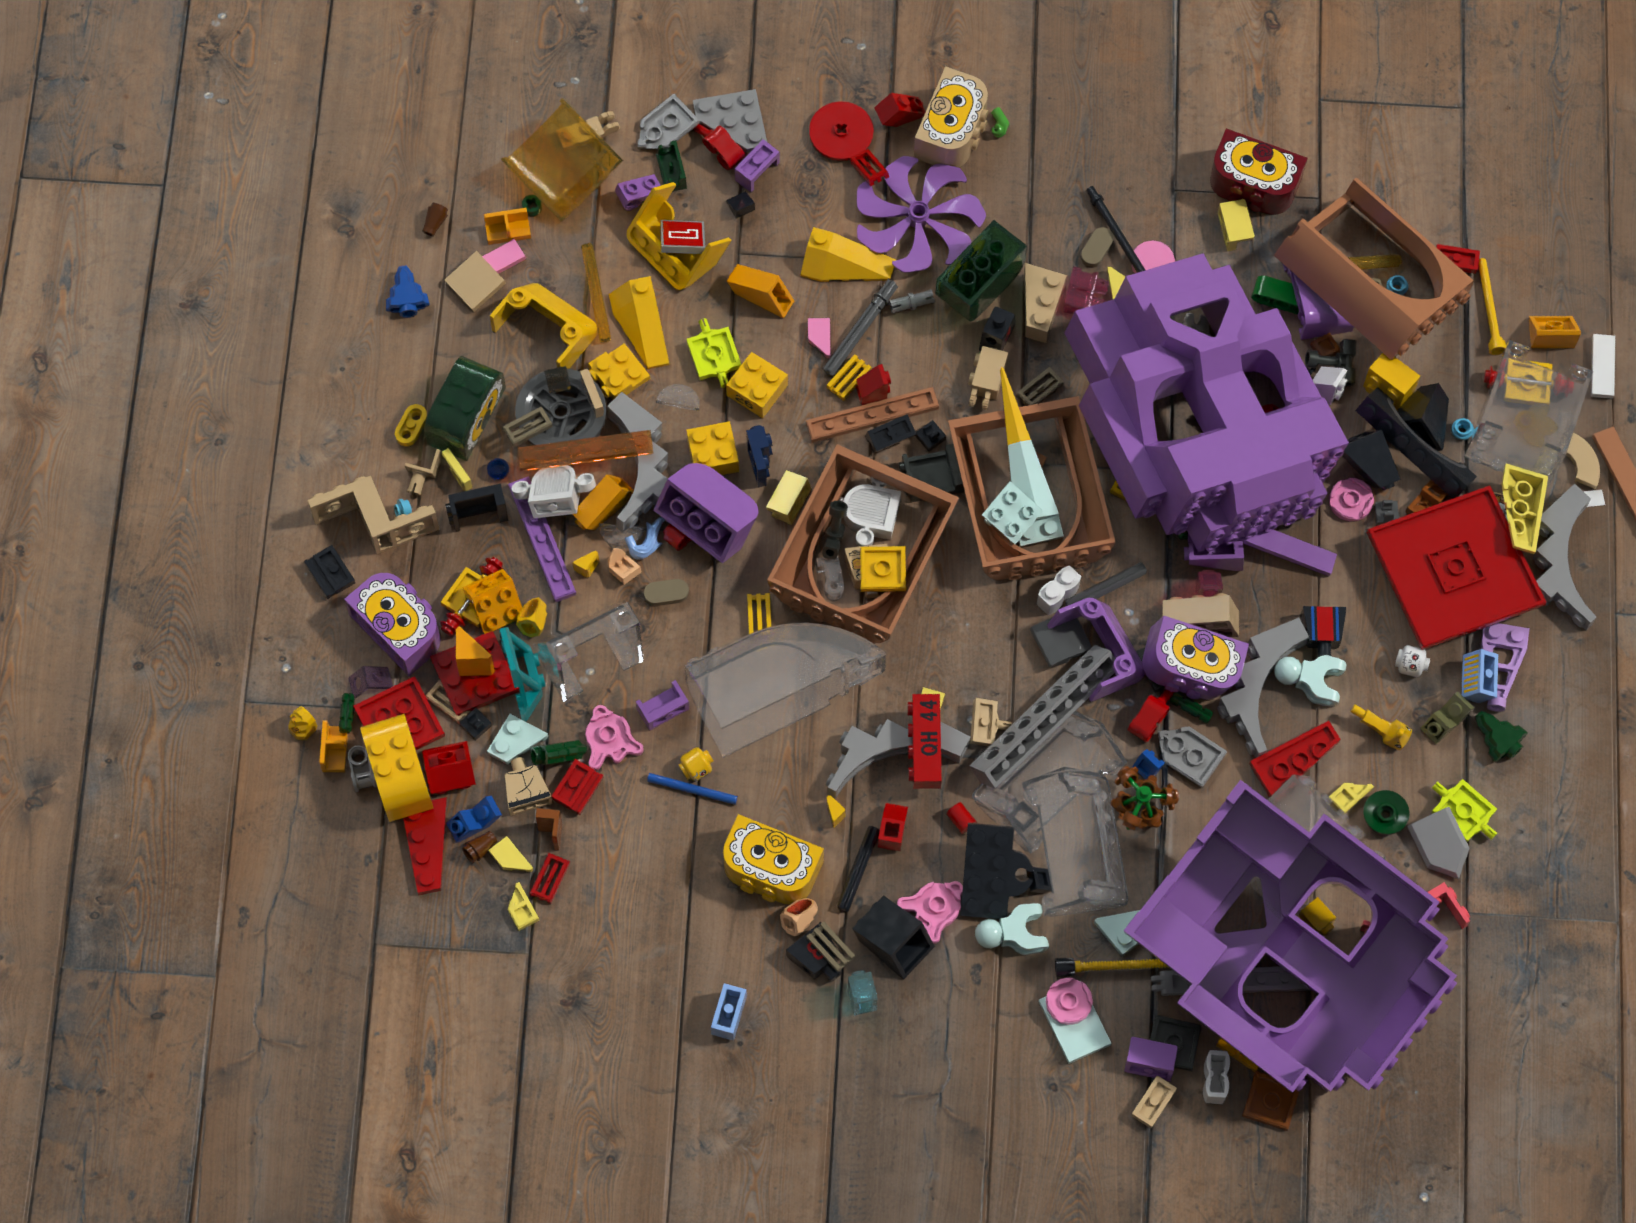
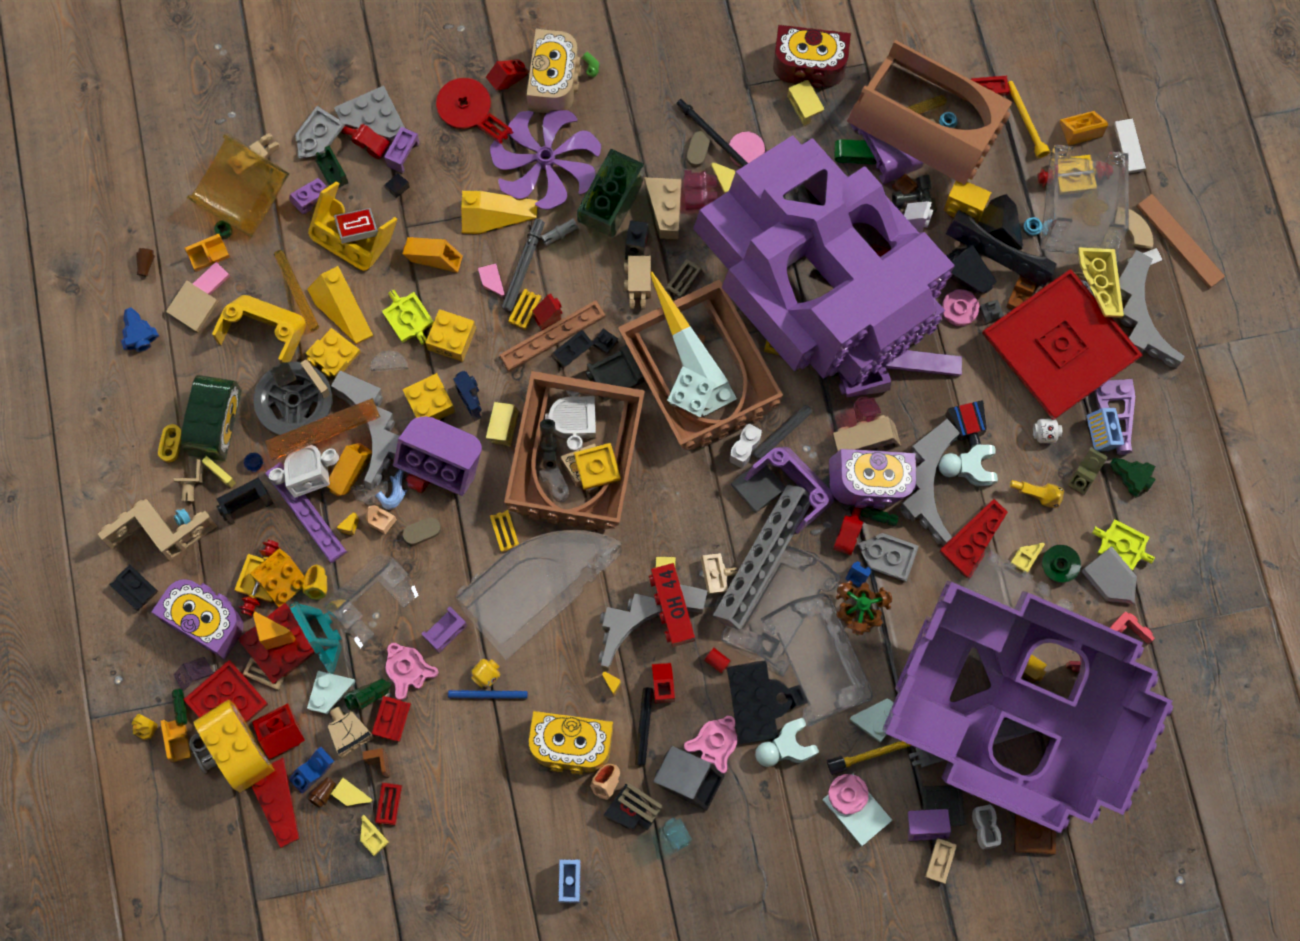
camera: 15 degrees left, 5 degrees up
(475, 724) = (291, 686): black tile -> none
(530, 434) = (273, 426): dark tan tile -> none

